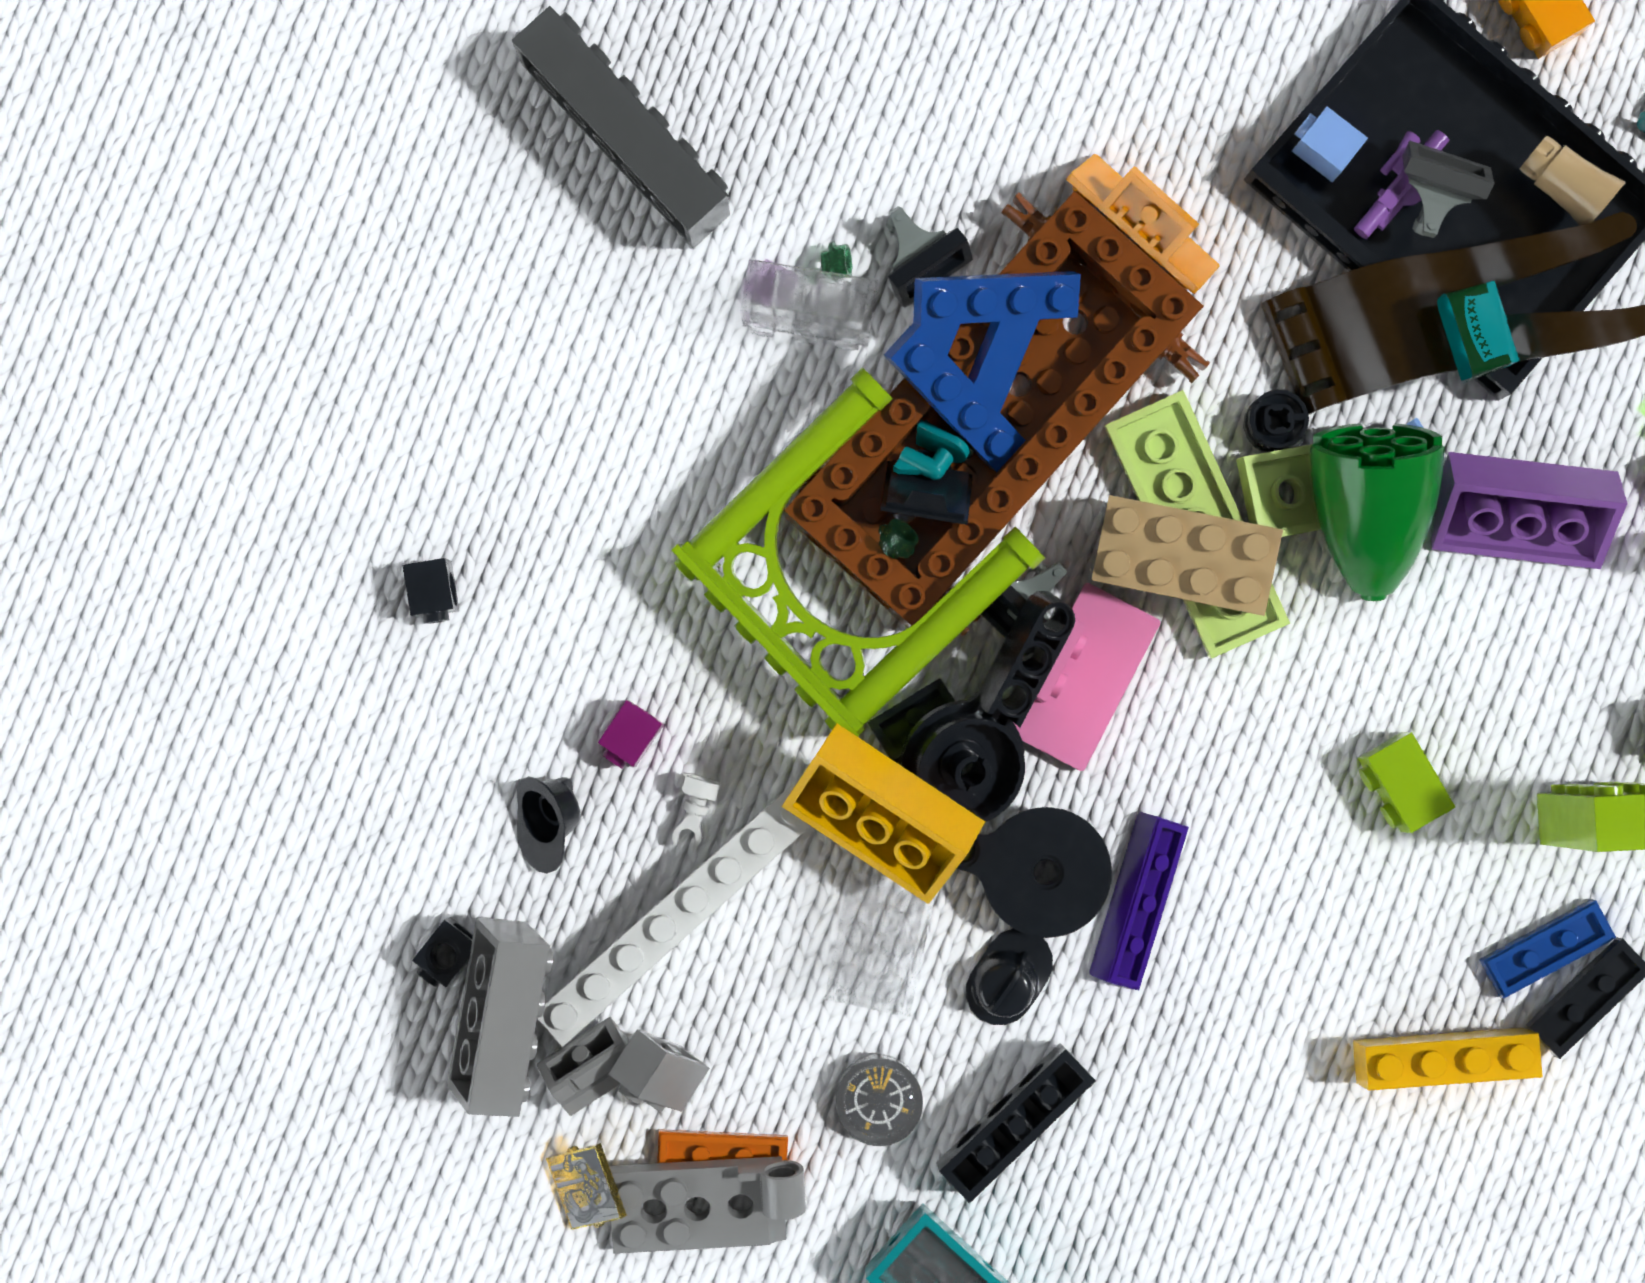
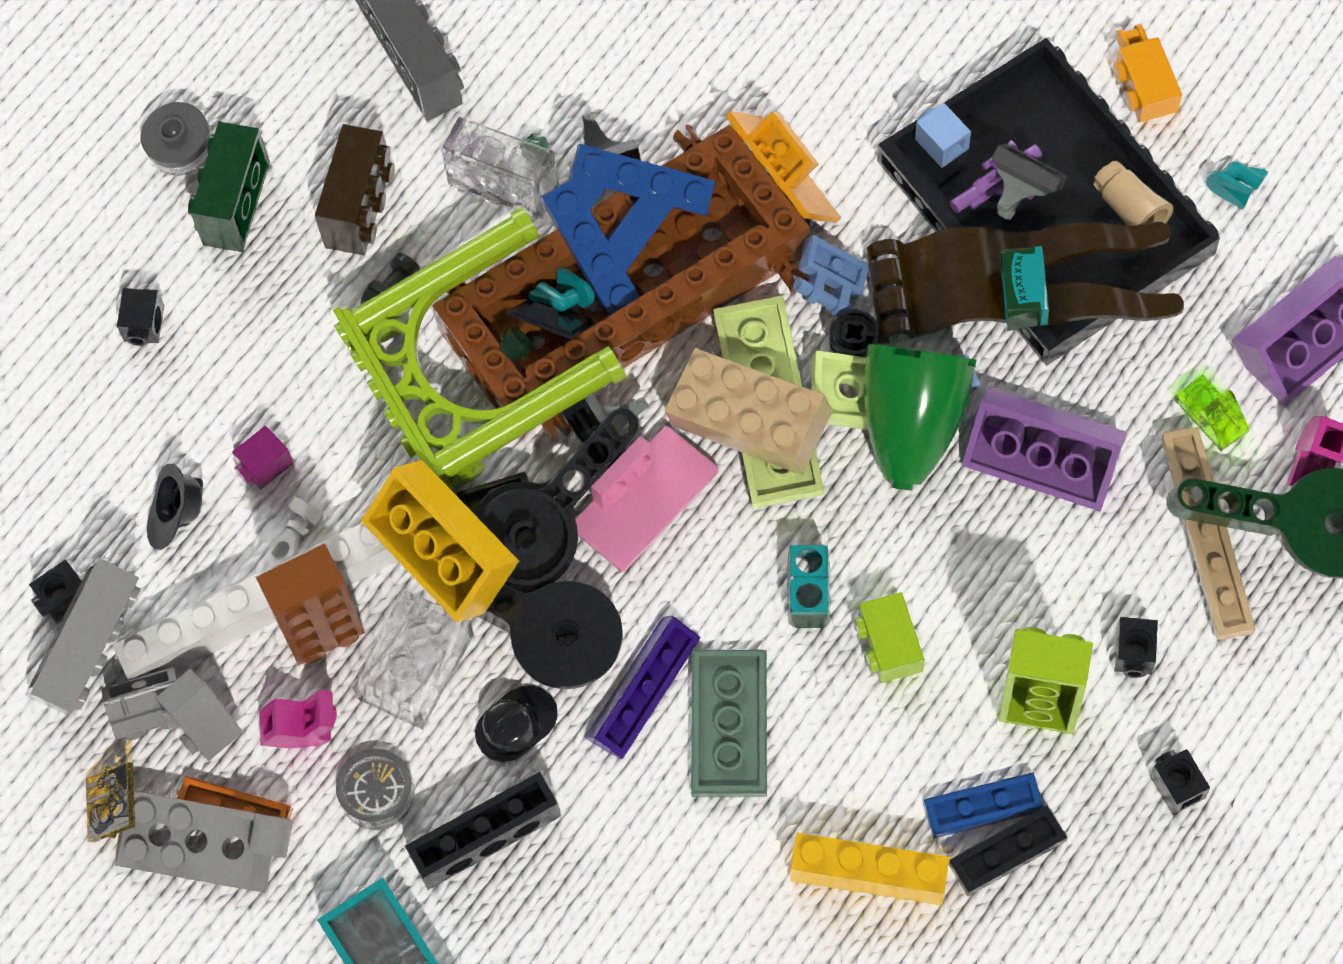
camera: 25 degrees right, 20 degrees down
(402, 346) = (176, 138): none -> dark grey piece
(488, 401) = (229, 186): none -> dark green brick
(642, 371) = (354, 190): none -> dark brown brick
(709, 493) = (402, 267): none -> pearl dark grey leg
(757, 929) = (311, 605): none -> dark orange brick
(770, 1044) = (298, 722): none -> dark pink brick
(1231, 342) = (834, 268): none -> medium blue plate
(1246, 921) = (729, 723): none -> sand green tile
(1279, 736) = (821, 614): none -> teal piece

